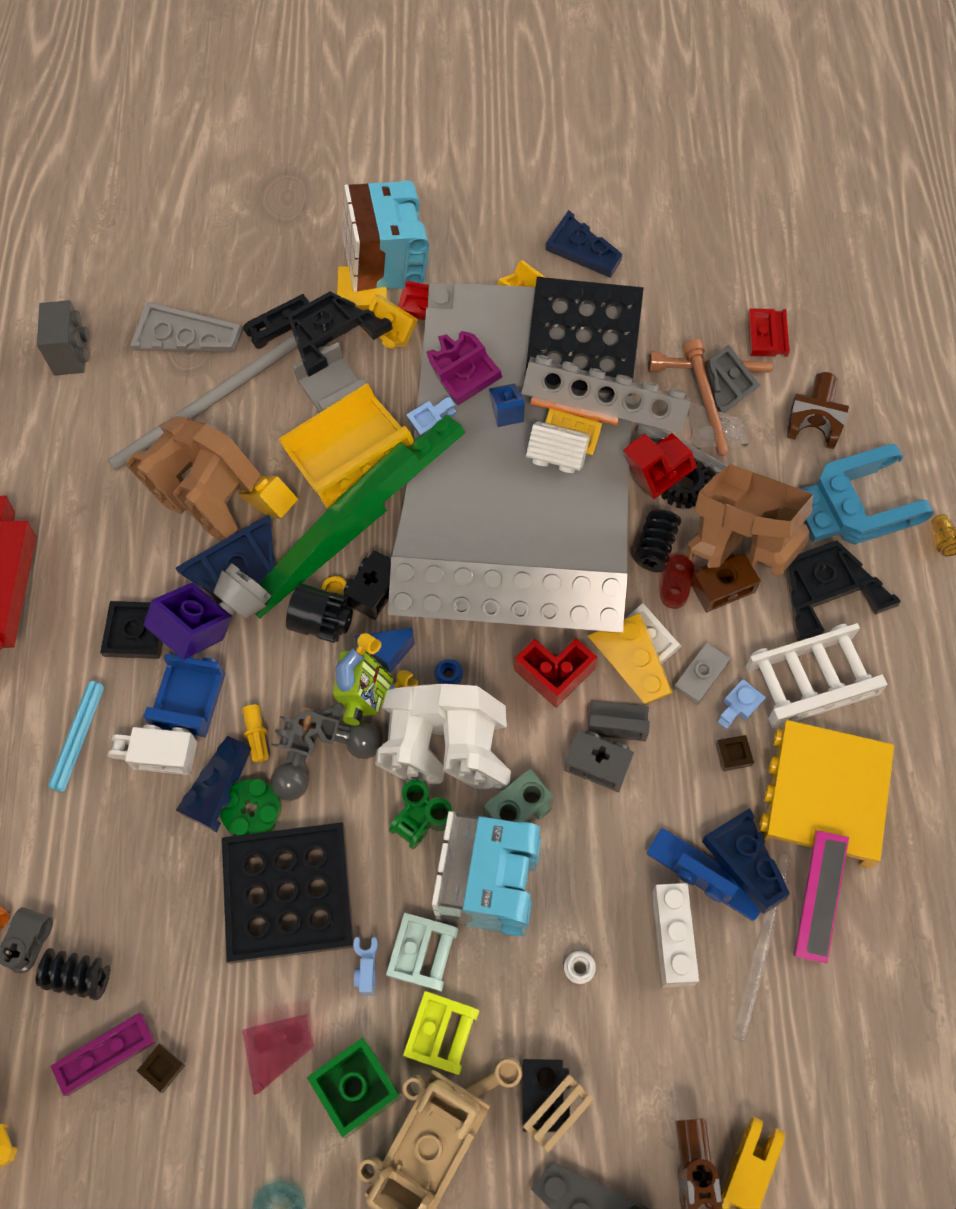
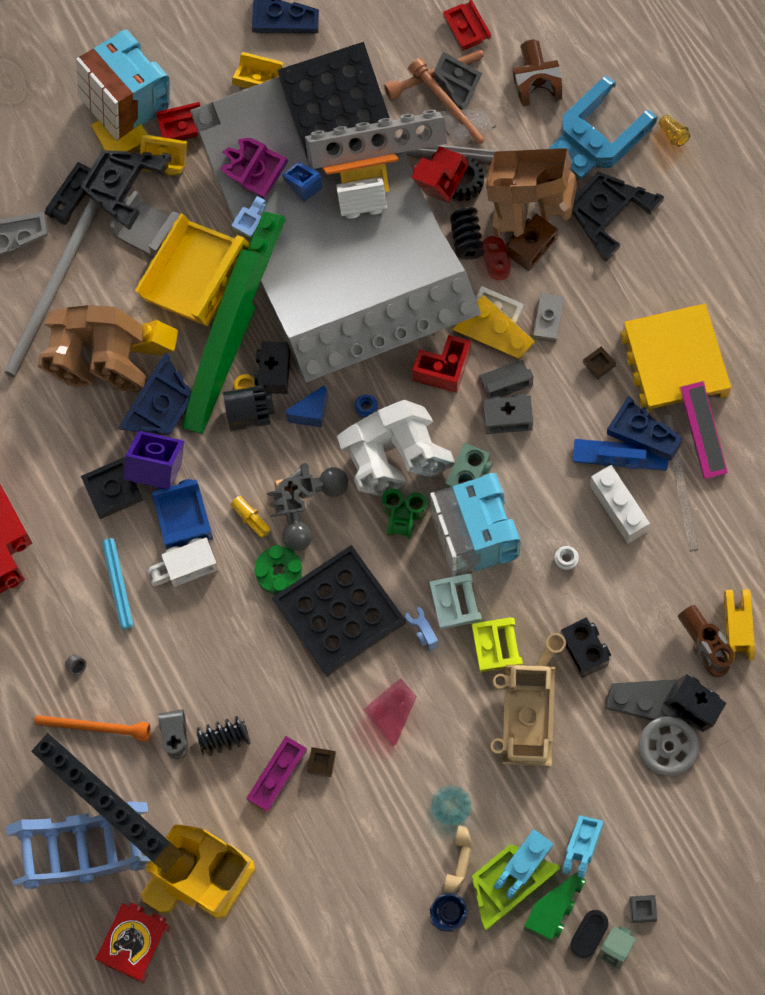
camera: 25 degrees left, 5 degrees up
(212, 787) = (244, 567): dark blue wing -> none
(240, 593) = (182, 420): light grey cone -> none
(354, 1087) = (460, 704): green brick -> none
(363, 682) = (312, 440): torso -> none
(578, 1090) = (606, 629): tan tile -> none
(741, 702) = (586, 324): light blue plate -> none
(812, 702) = (635, 300): white fence -> none

